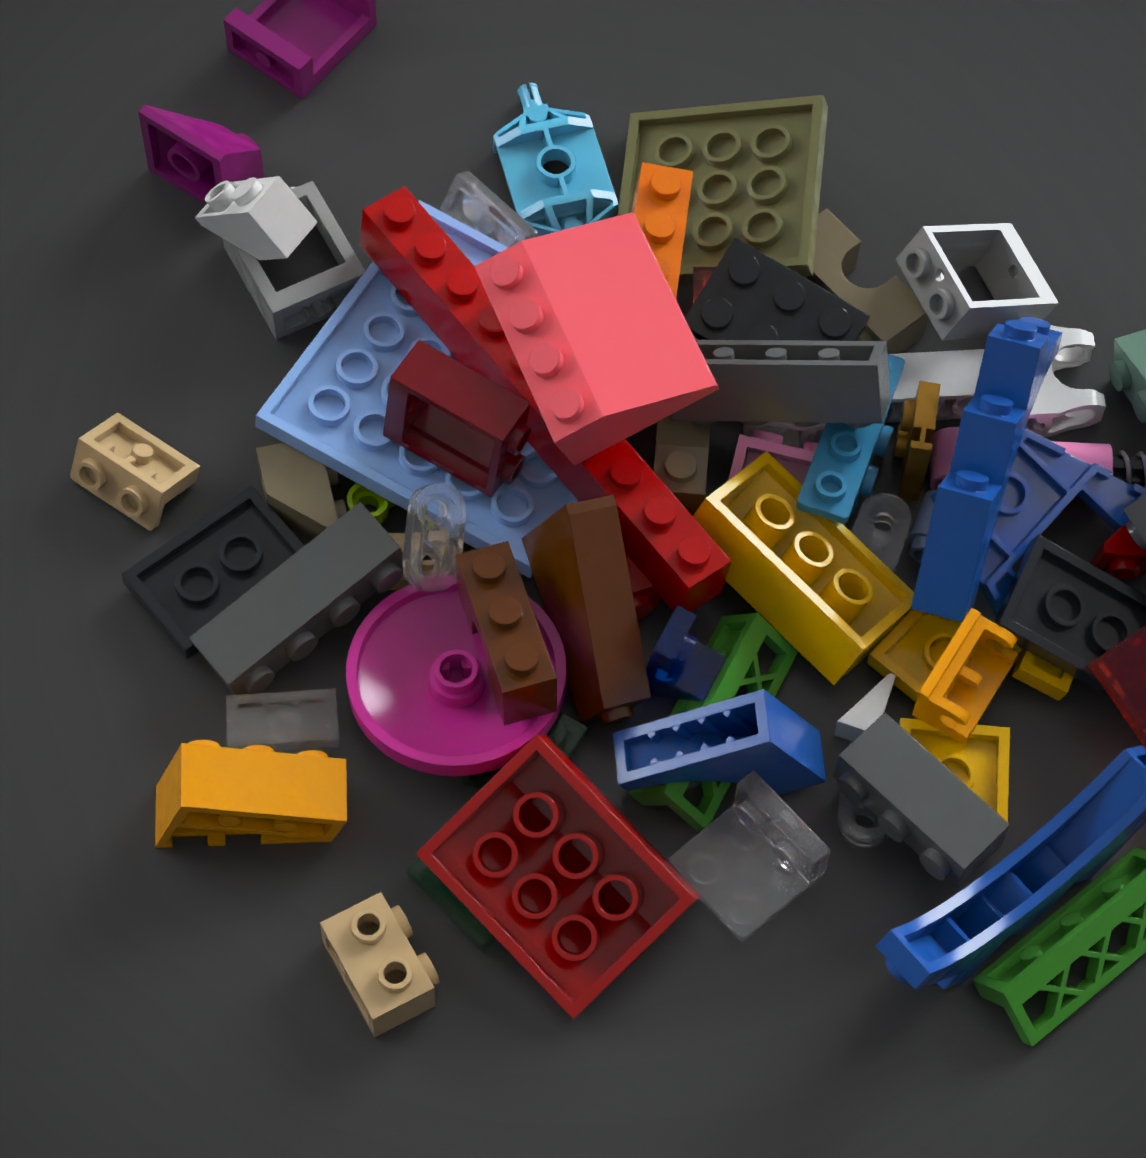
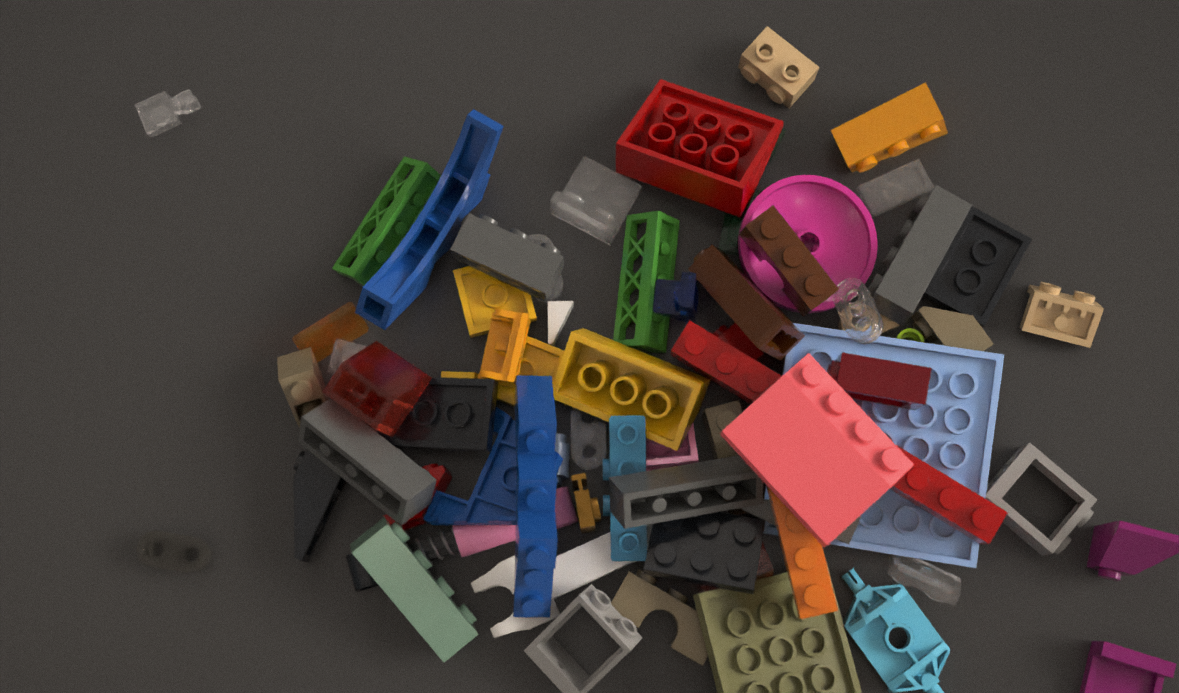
camera: 165 degrees right, 15 degrees up
(257, 216) = (1074, 495): white slope -> none
(723, 745) = (630, 241): blue arch -> none

